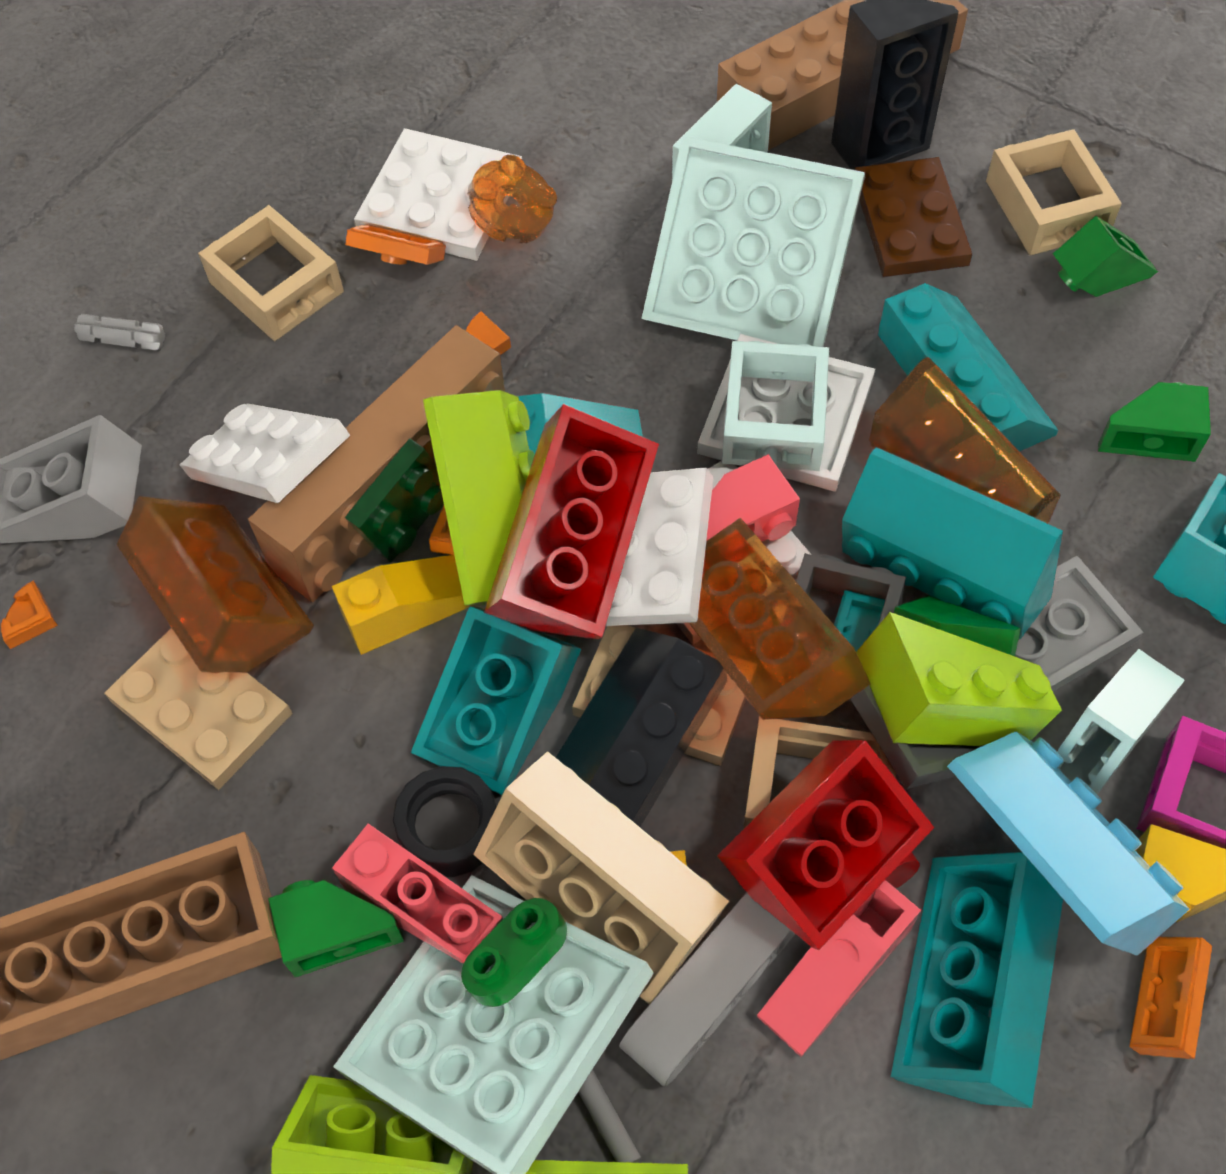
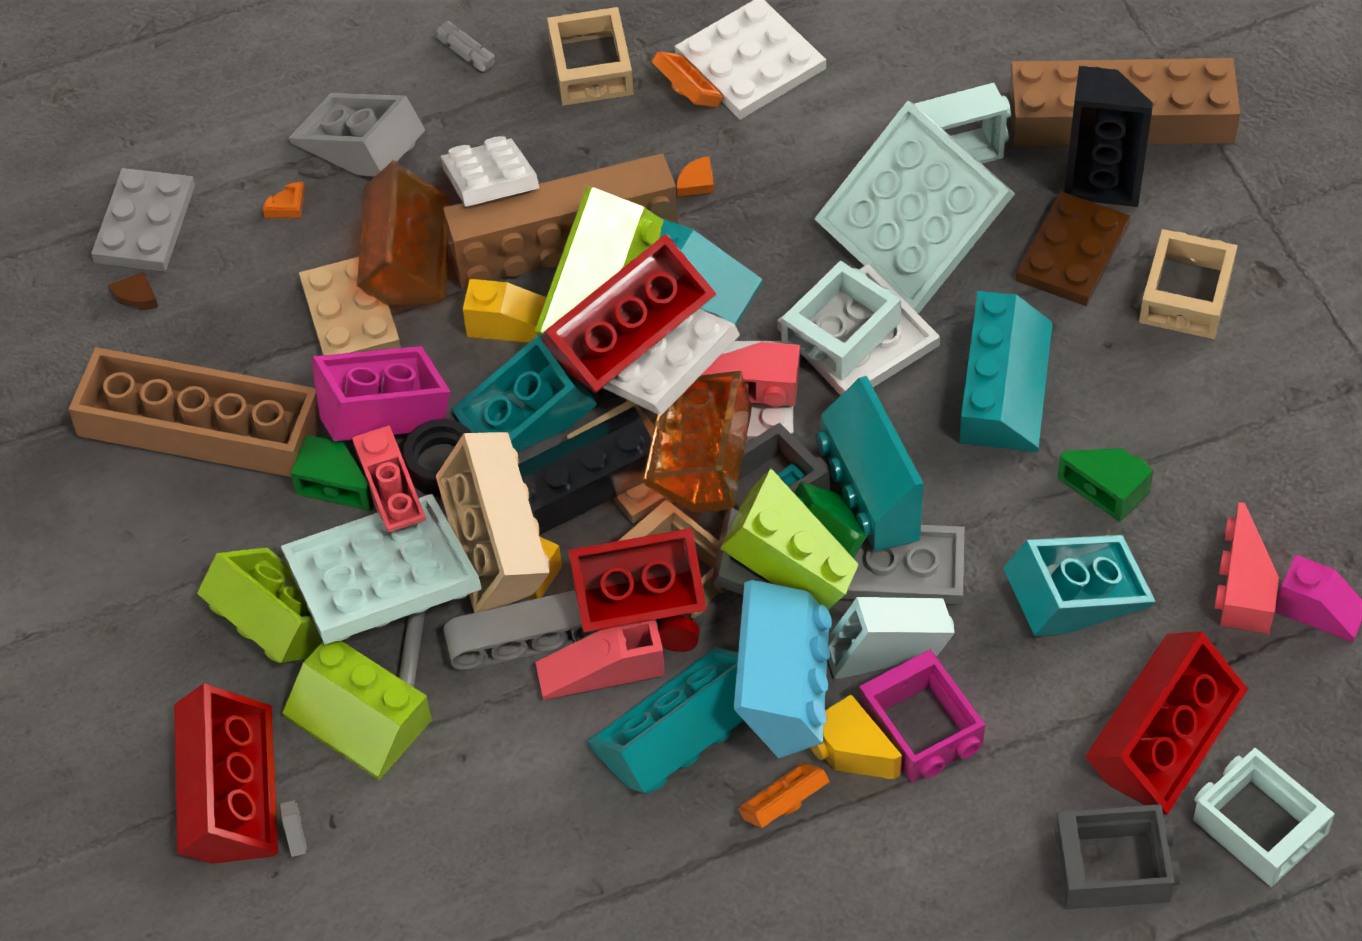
camera: 35 degrees right, 5 degrees down
(320, 789) = (378, 390): none -> dark pink slope
(398, 502) = (539, 248): dark green plate -> none
(515, 951) = (416, 536): green plate -> none
(519, 181) = (801, 72): clear orange plate -> none
(947, 434) = (932, 424): clear orange slope -> none
(1102, 259) = (1179, 351): green slope -> none

